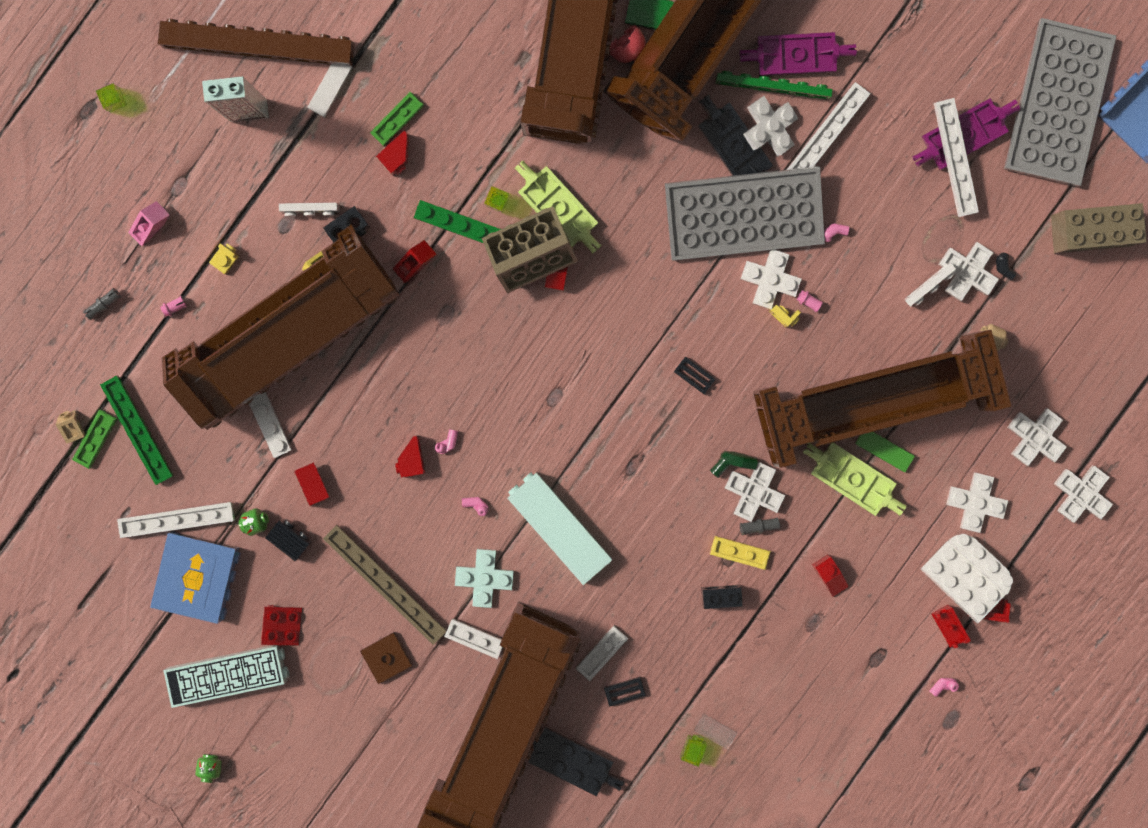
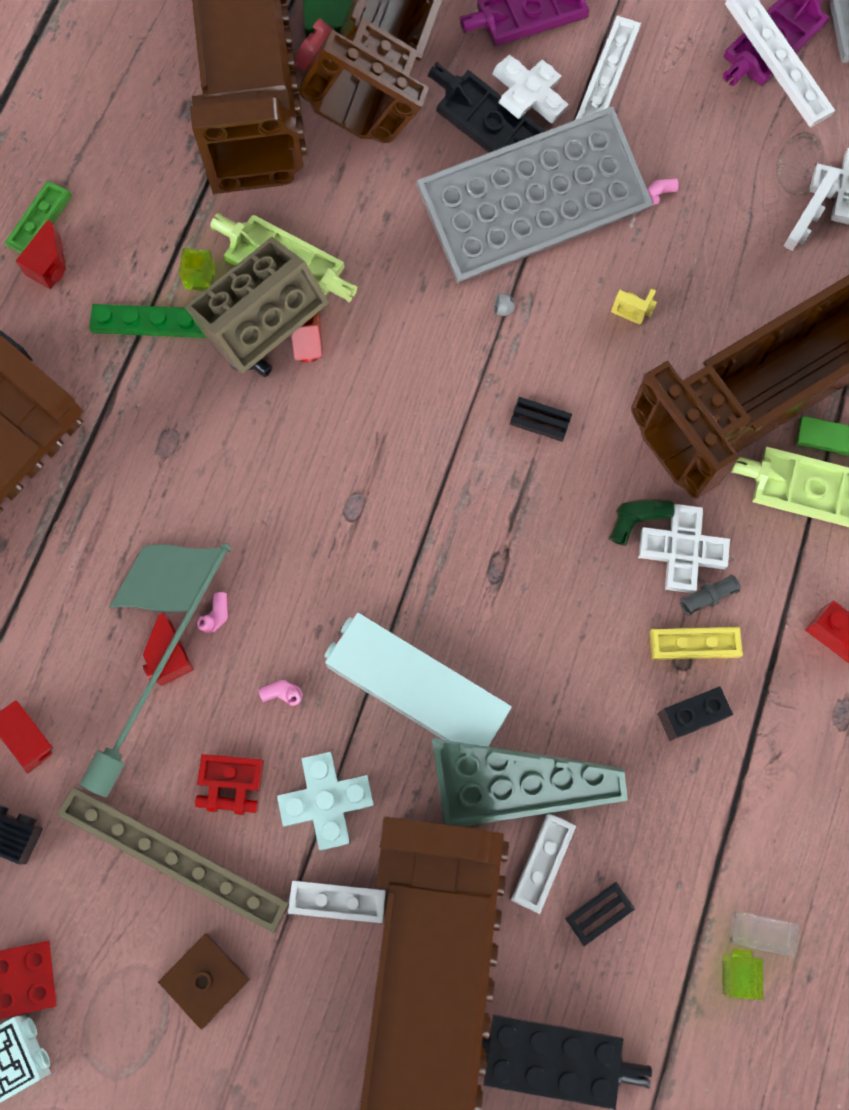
camera: 15 degrees left, 15 degrees down
(414, 261) = (103, 380): red slope -> none
(422, 414) = (160, 581): none -> sand green flag
(432, 545) = (229, 773): none -> red plate
(589, 602) = (504, 784): none -> sand green wing
(696, 286) = (504, 304): none -> light grey hinge
(766, 84) = (520, 47): green plate -> none
(770, 279) = (598, 270): white plate -> none
(809, 301) = (660, 279): bright pink pin -> none

